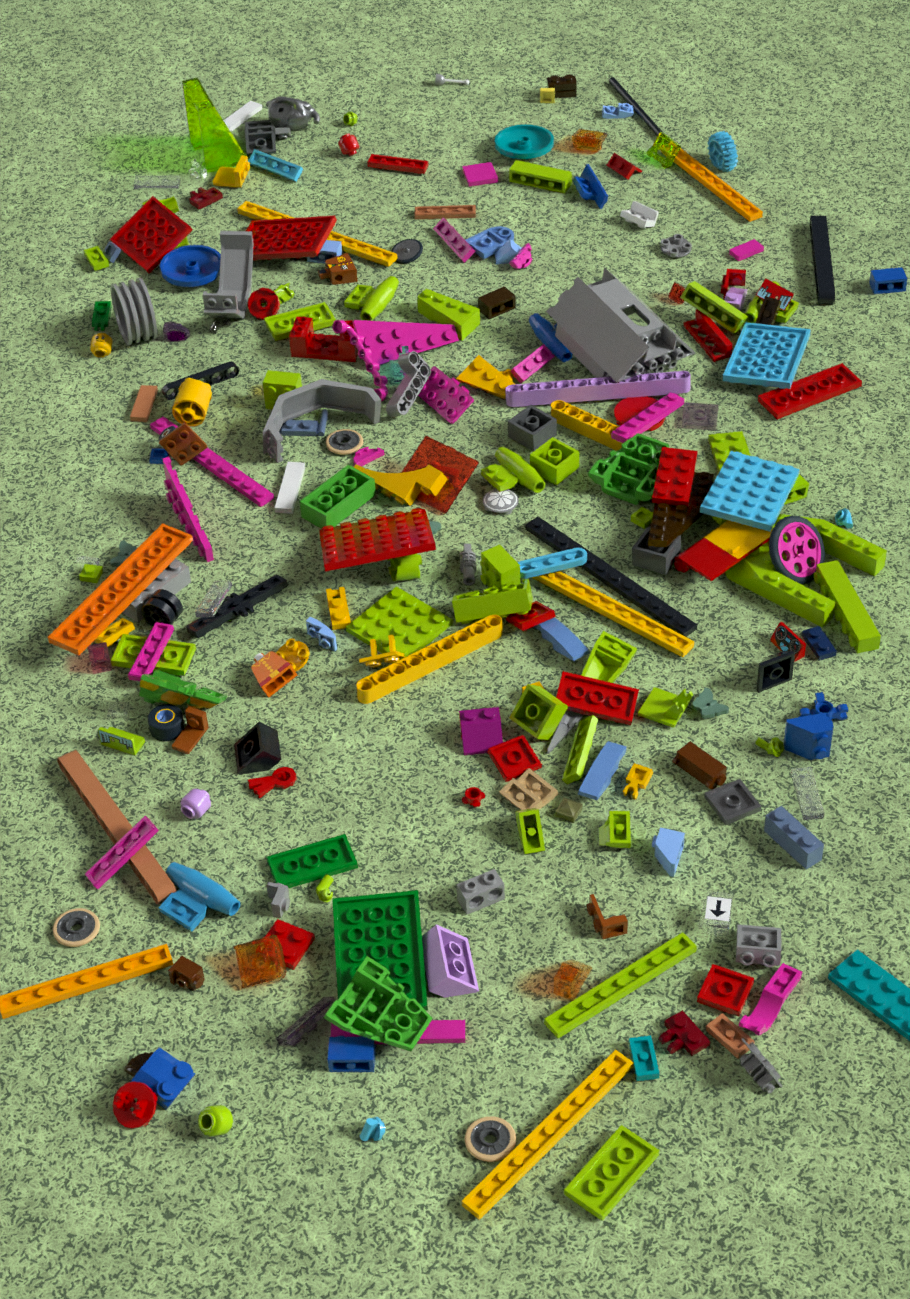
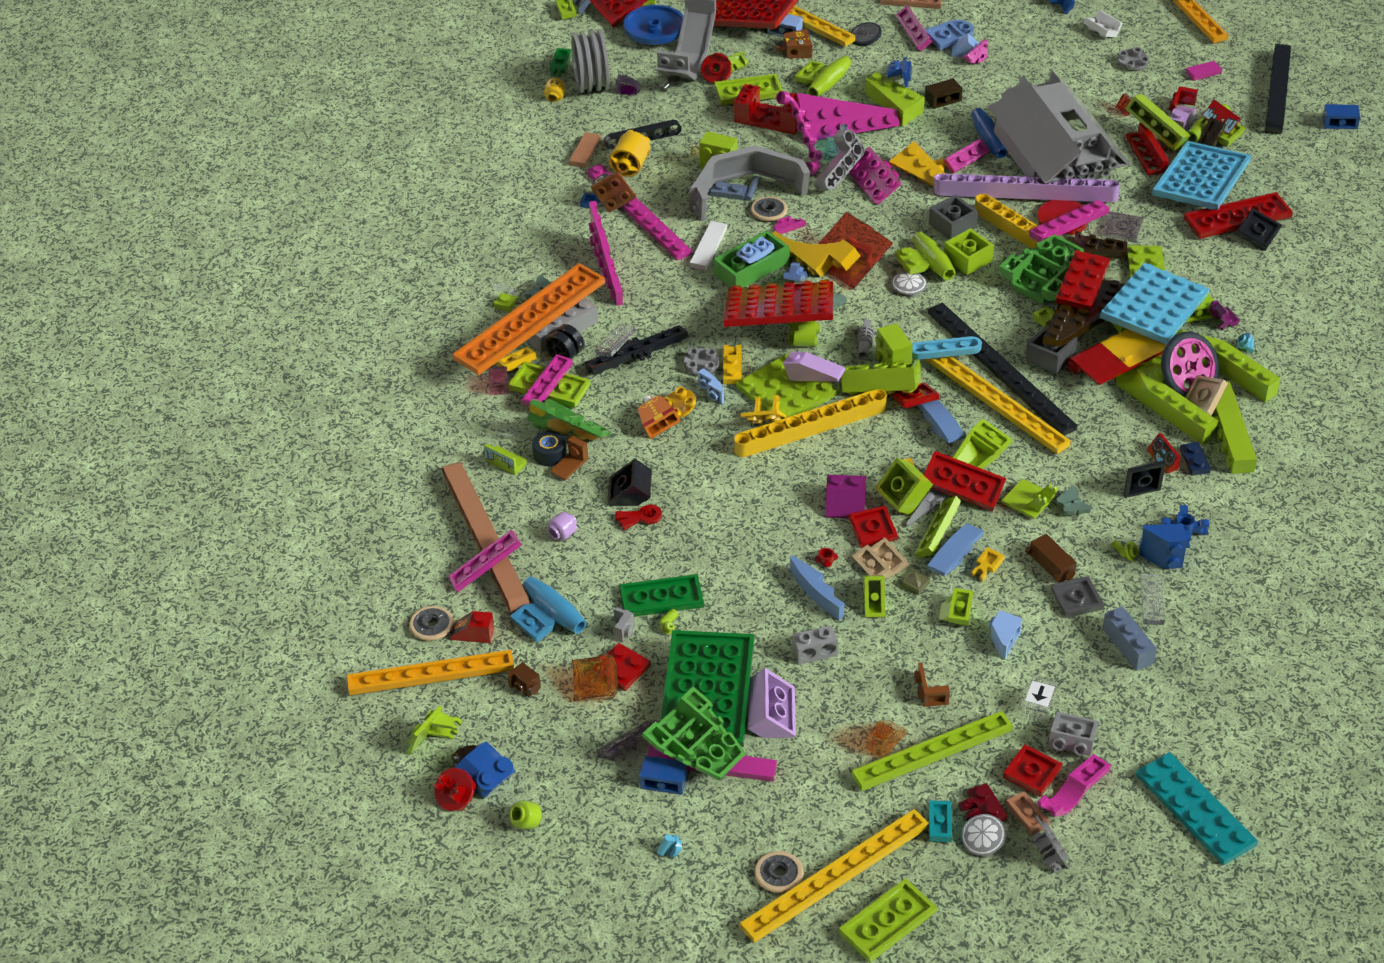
camera: 10 degrees right, 0 degrees up
(102, 1037) = (435, 724): none -> lime plate
(122, 925) = (474, 627): none -> red slope
(305, 606) = (701, 358): none -> light grey dish
(342, 487) = (756, 251): none -> light blue slope
(385, 505) = (795, 272): none -> medium blue plate
(419, 602) = (808, 367): none -> lavender slope
(448, 282) = (900, 68): none -> blue bracket
(465, 827) = (817, 590): none -> medium blue slope
(684, 440) = (1105, 248): none -> dark brown wing
(690, 1066) = (983, 835): none -> dish
(818, 574) = (1206, 392): none -> tan plate
(820, 493) = (1226, 314): none -> magenta piece
(833, 403) = (1258, 229): none -> black plate

